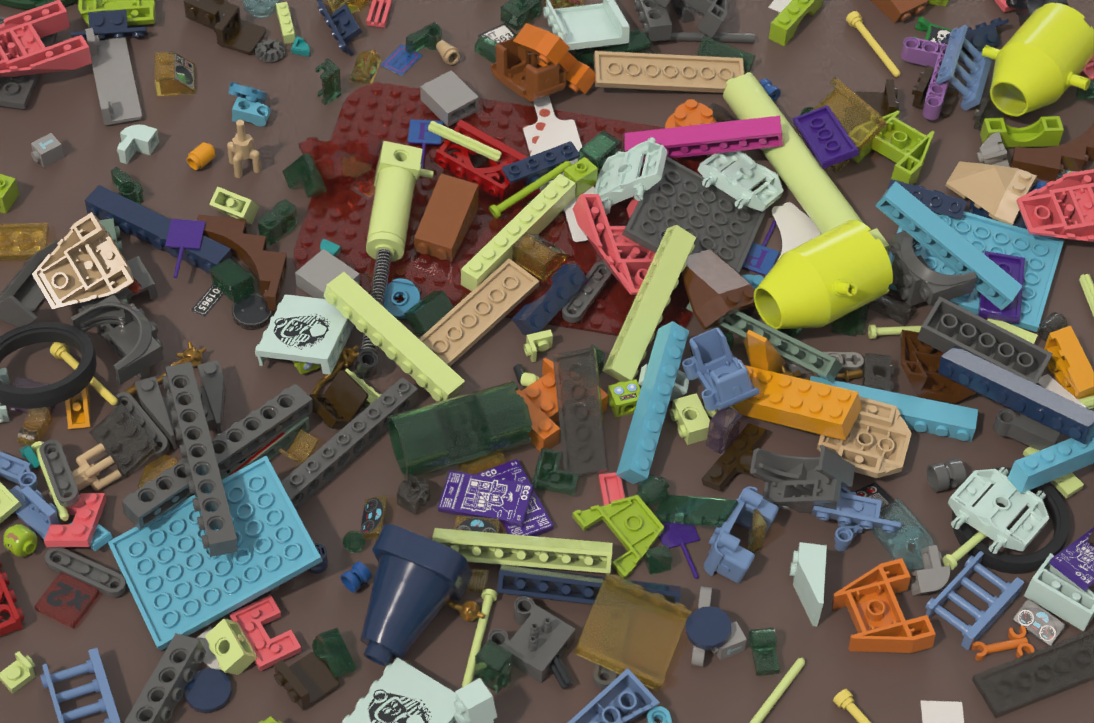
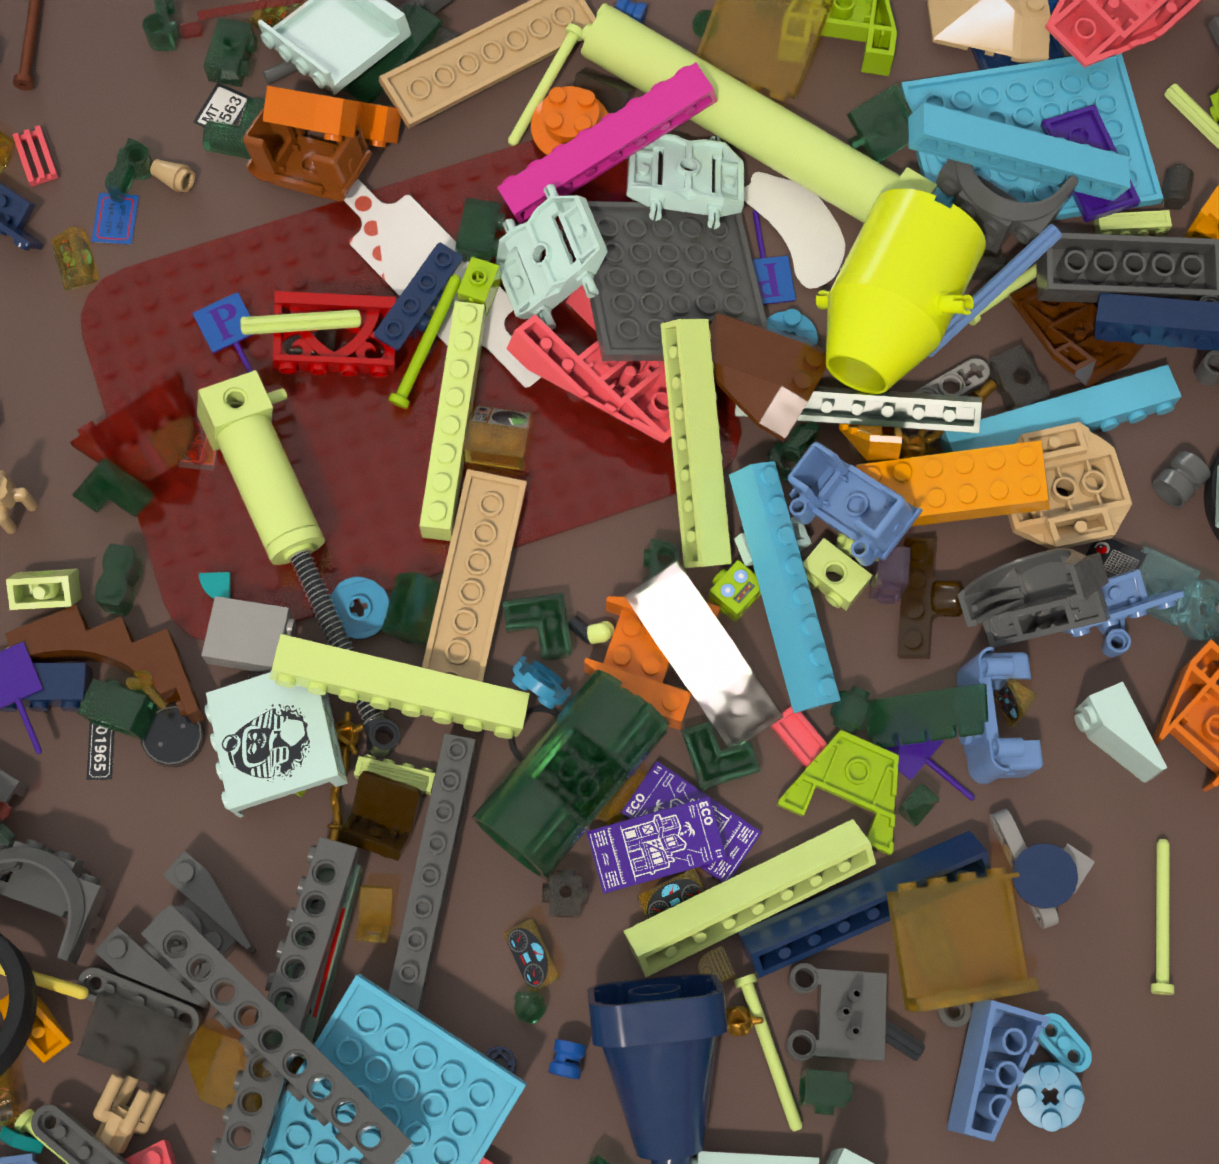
camera: 30 degrees left, 20 degrees up
(190, 355) = (139, 859): pearl gold piece -> none
(254, 270) = (144, 682): none -> clear yellow hand
(330, 81) = (48, 315): clear green hinge -> none
(447, 218) = (347, 453): dark orange slope -> none
(449, 98) = (226, 253): light grey brick -> none
(476, 381) = (540, 681): none -> dark azure plate
(502, 355) = (546, 615): none -> clear green brick
(538, 314) = (554, 535): dark blue arch -> none
(538, 342) = (578, 569): yellowish green bracket -> none
(584, 298) = (594, 461): dark grey plate -> none
(698, 98) = (573, 34): none -> yellowish green bar
(764, 651) = (1113, 855): clear green plate -> none
(825, 136) = (758, 55): dark purple tile -> none
(870, 213) = (881, 124): none -> clear green bracket
(887, 315) = (1002, 280): none -> medium blue axle
(936, 200) = (930, 79): dark blue bracket -> none

